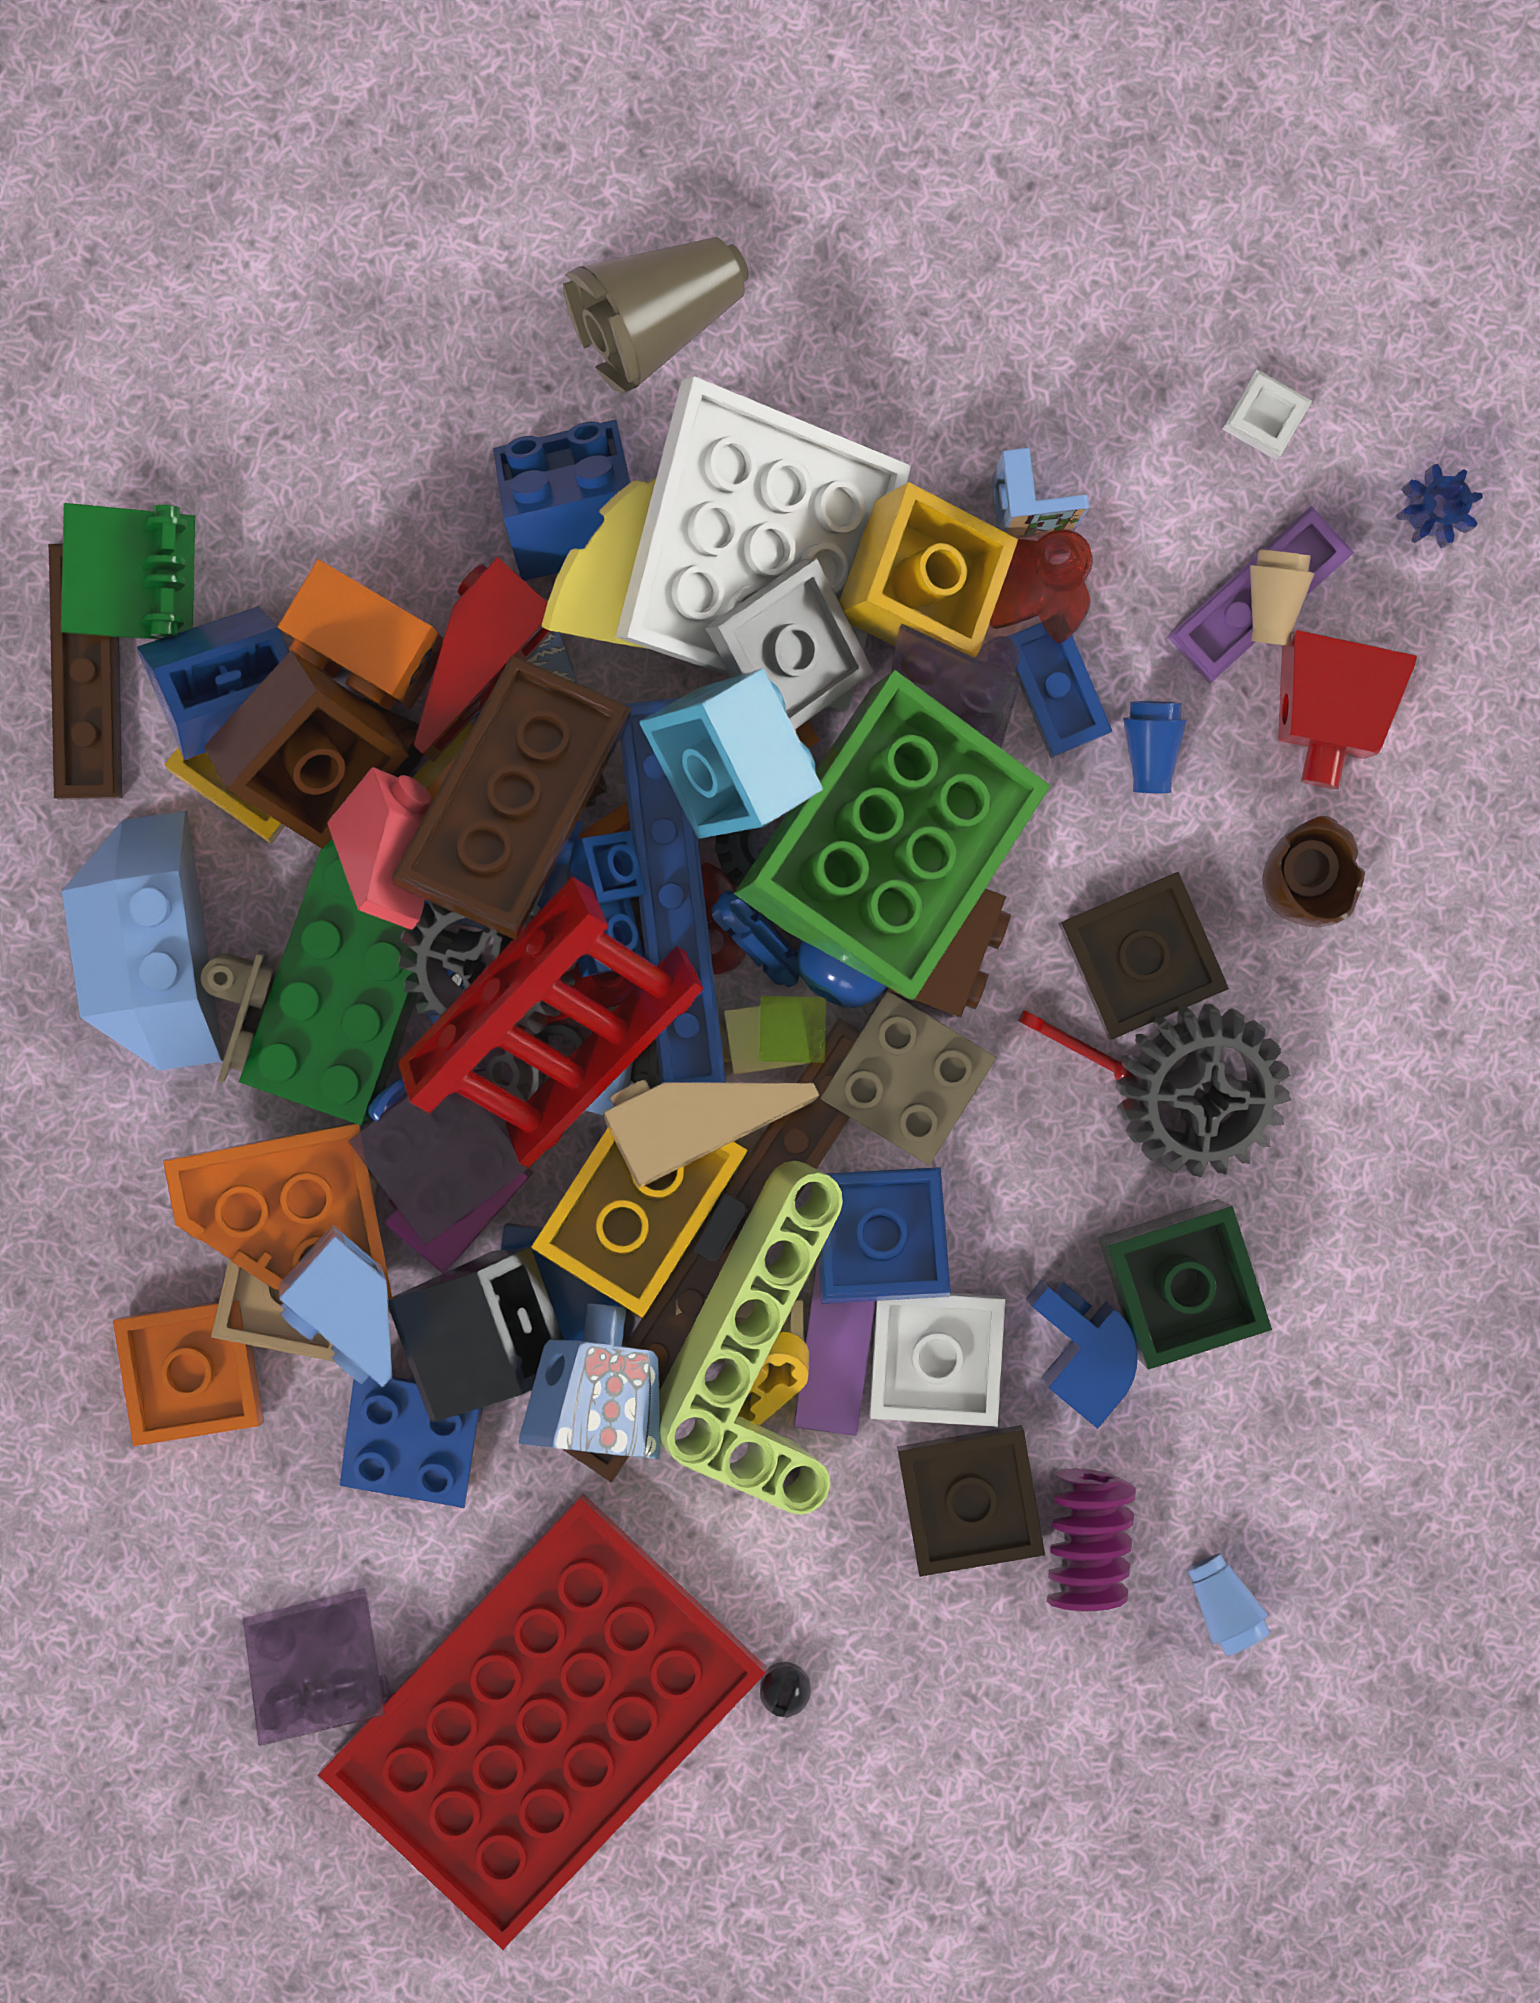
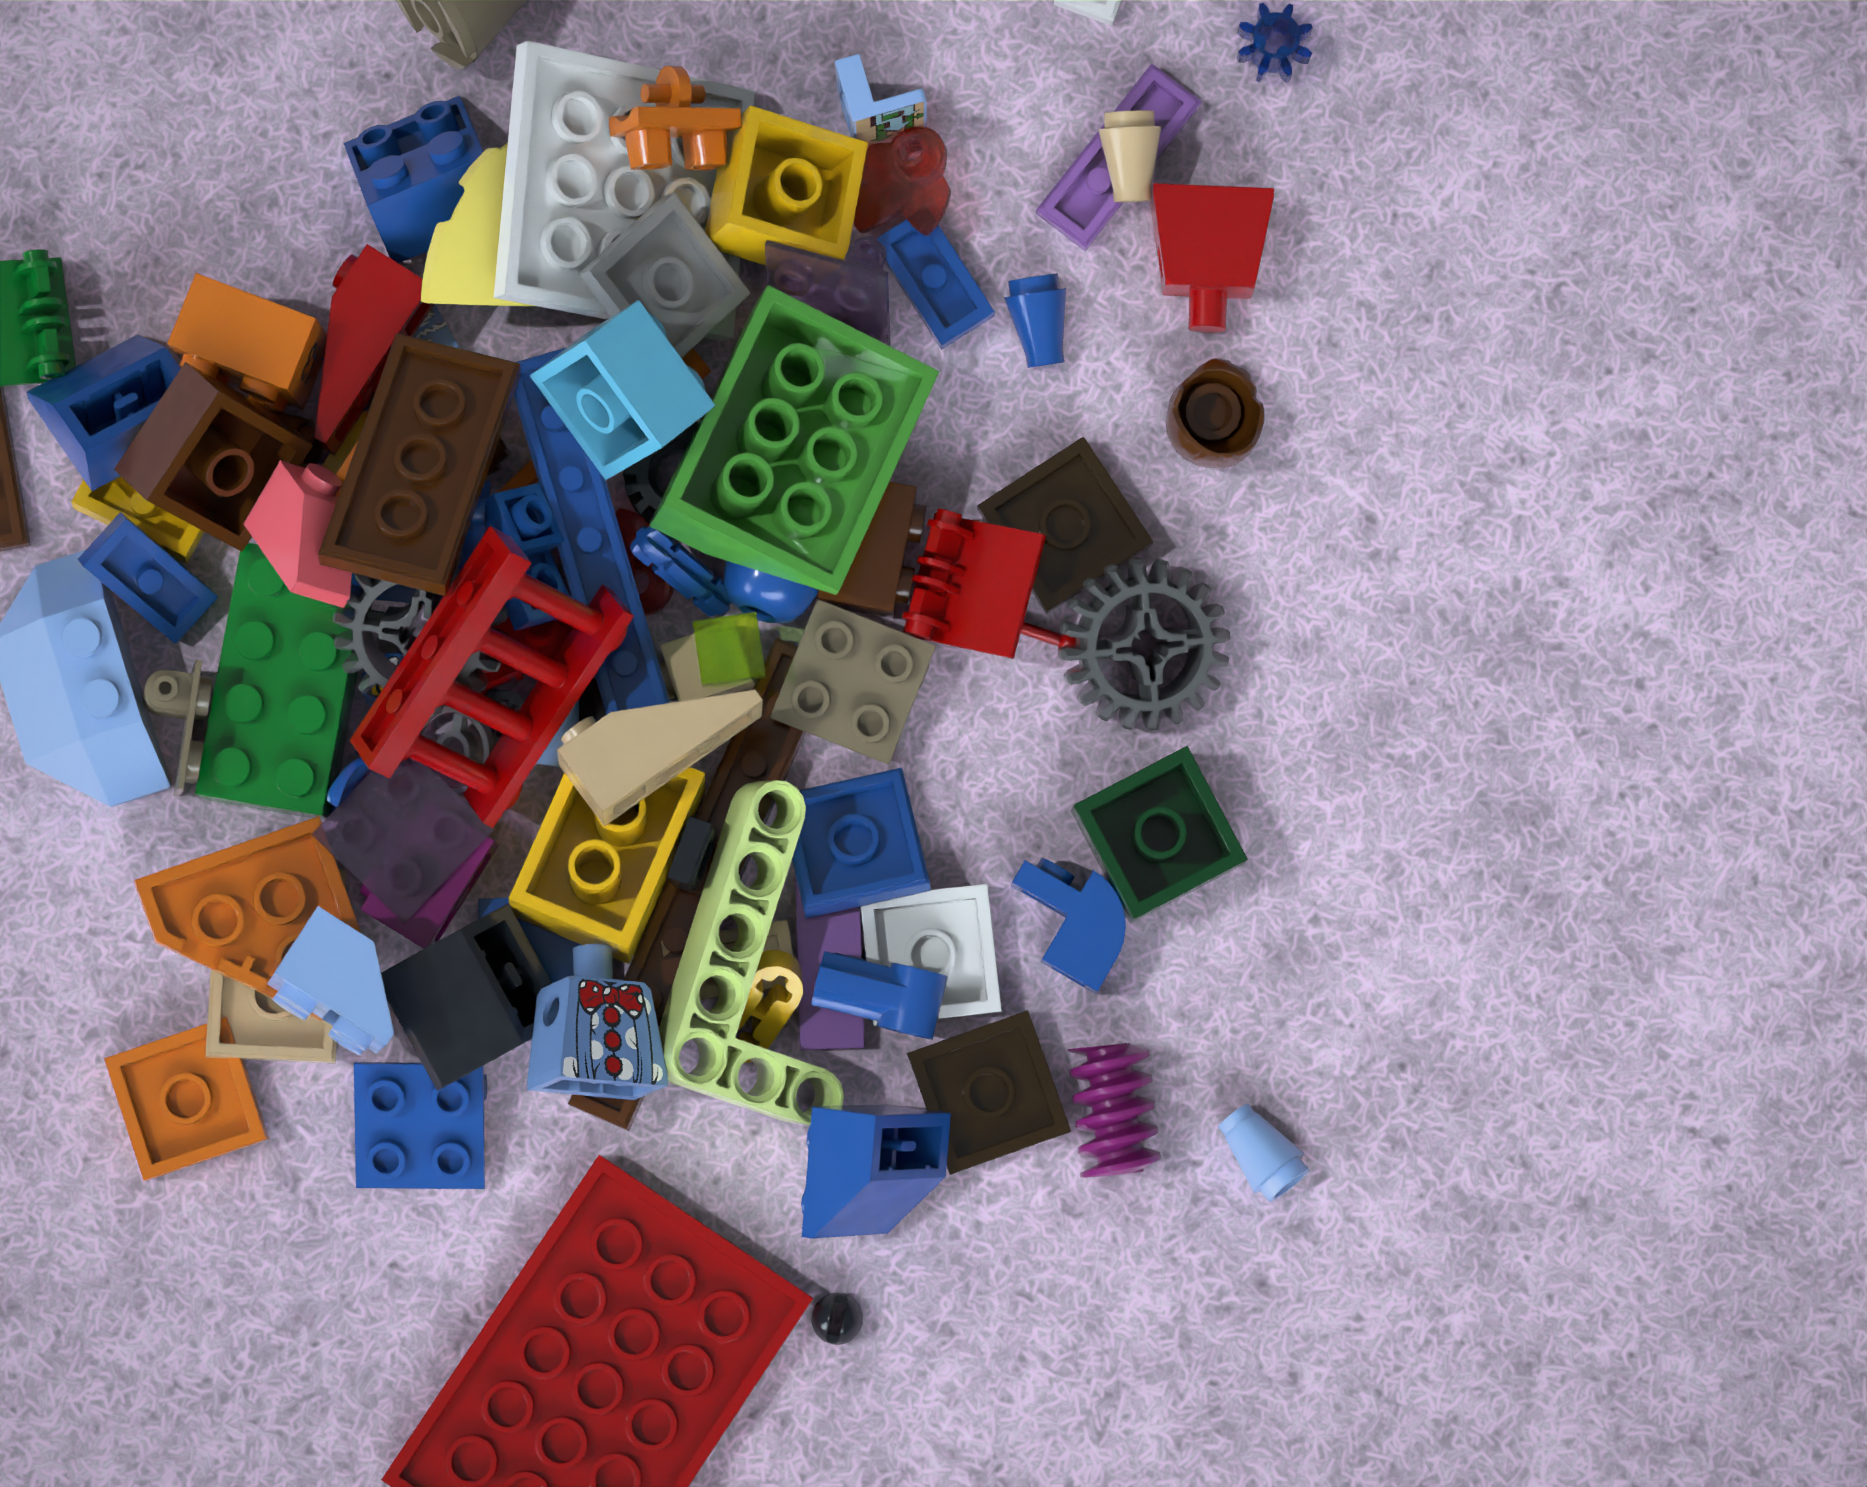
camera: 15 degrees left, 5 degrees down
(227, 854) = (147, 578): none -> blue plate
(313, 1667) = (359, 1373): clear purple hinge -> none
(803, 488) = (650, 128): none -> orange hips
(844, 1559) = (870, 1167): none -> blue slope
(898, 1401) = (894, 996): none -> blue piece
(1045, 1003) = (973, 584): none -> red hinge

